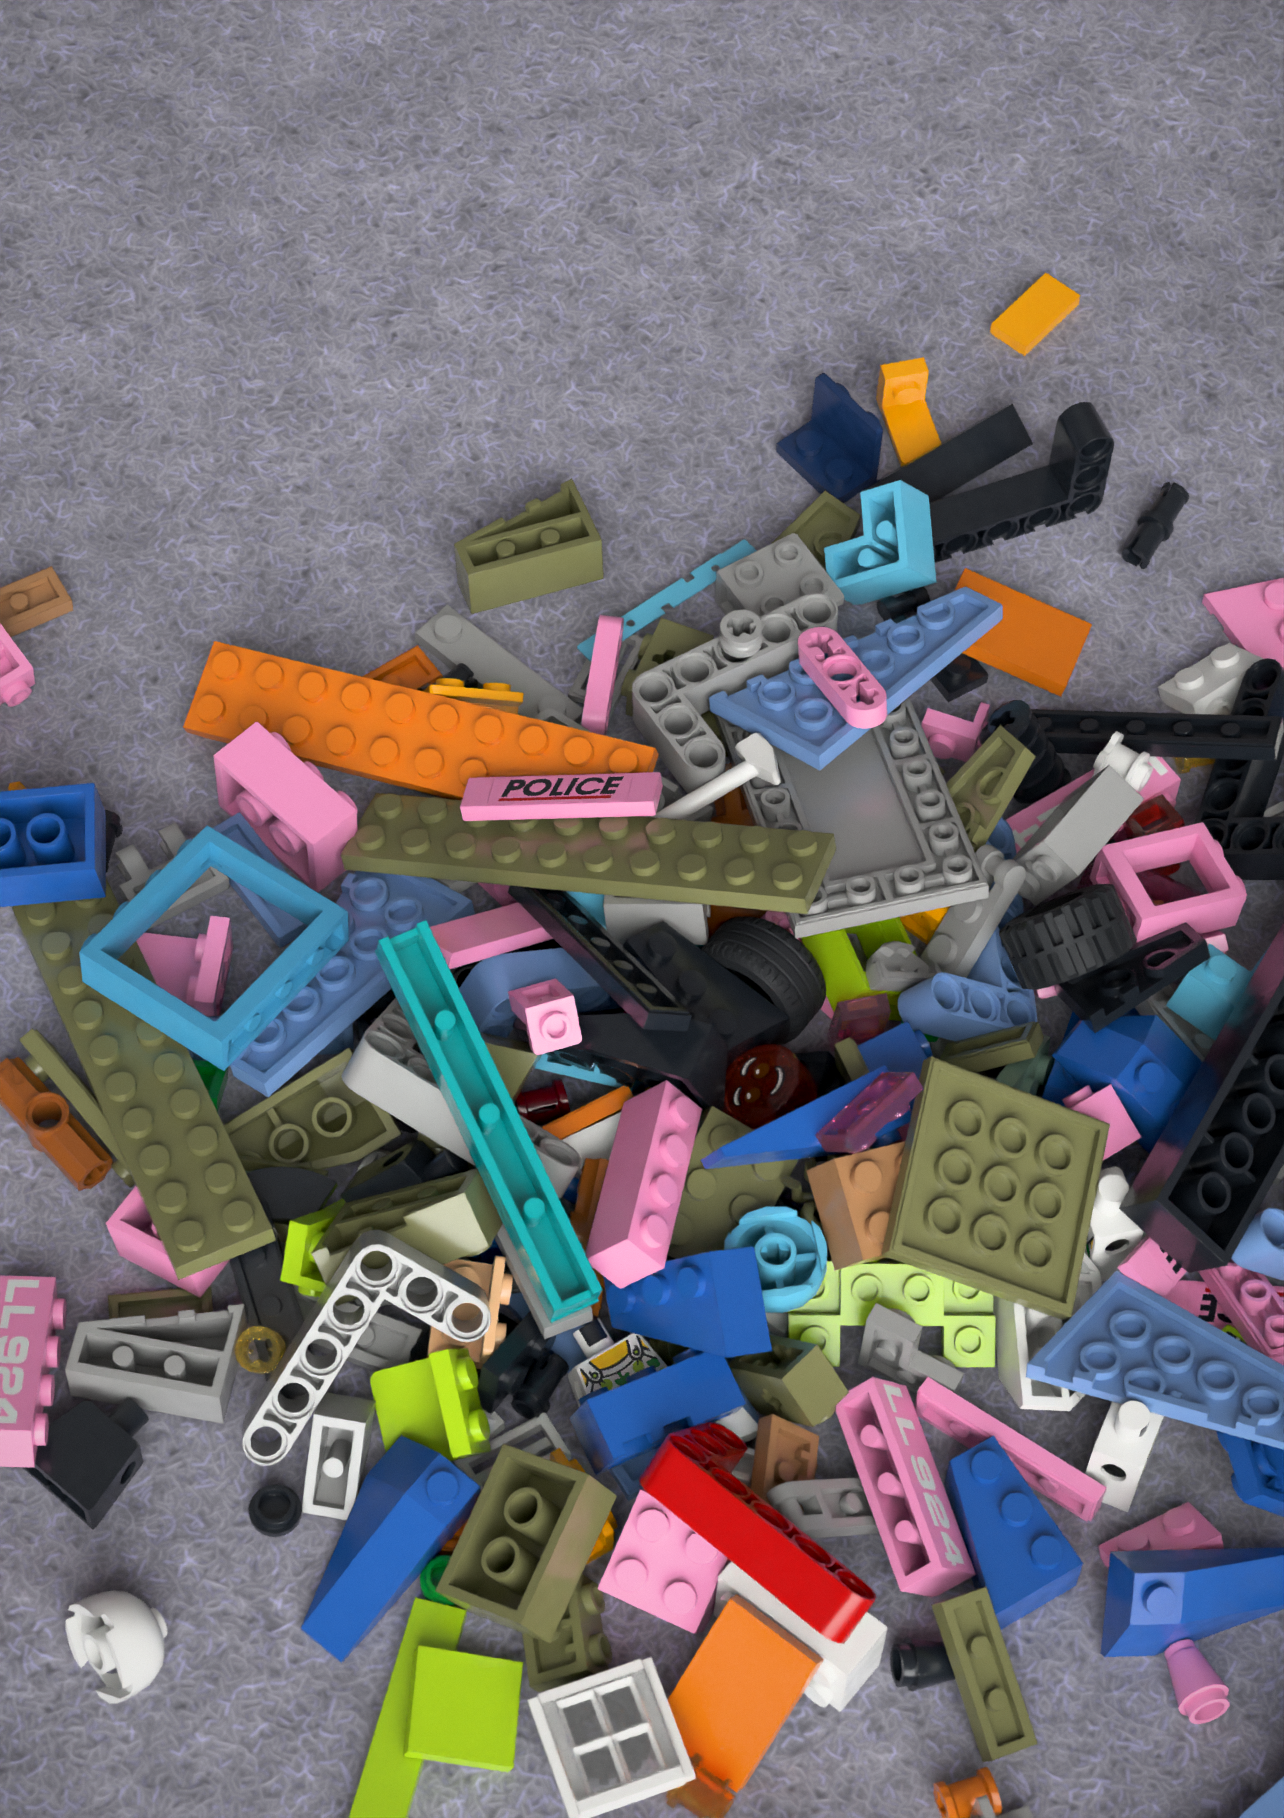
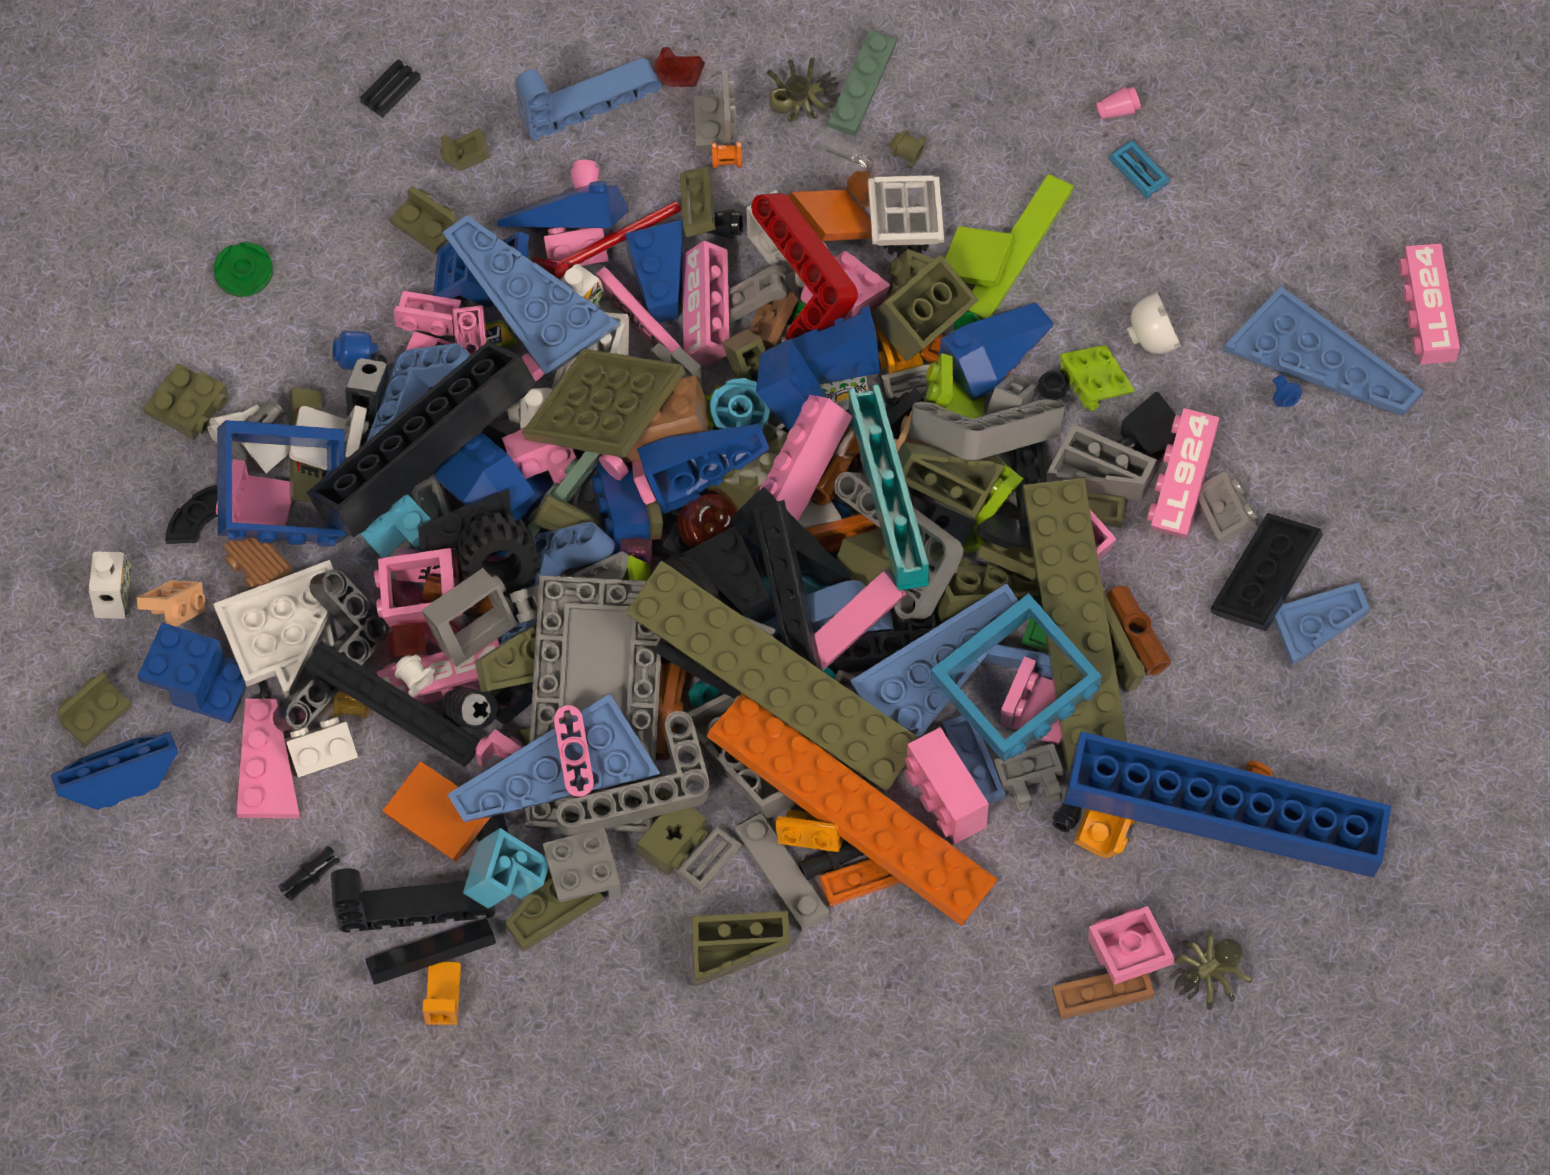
camera: 160 degrees left, 5 degrees up
(204, 1542) = (1094, 375): none -> lime hinge
(261, 1334) = (1042, 454): clear yellow bush -> none
(548, 1015) = (832, 559): bright pink bracket -> none
(561, 796) = (778, 712): bright pink tile -> none
(602, 674) = (718, 835): bright pink beam -> none
(674, 594) = (649, 897): medium azure piece -> none
(736, 623) = (628, 790): light grey bush -> none
(757, 761) = (645, 716): white piece -> none
(839, 444) = (506, 979): dark blue bracket -> none
(869, 1111) = (666, 434): clear pink plate -> none
(1035, 314) = (319, 1066): light orange tile -> none
(1172, 1477) = (559, 267): none -> red bar

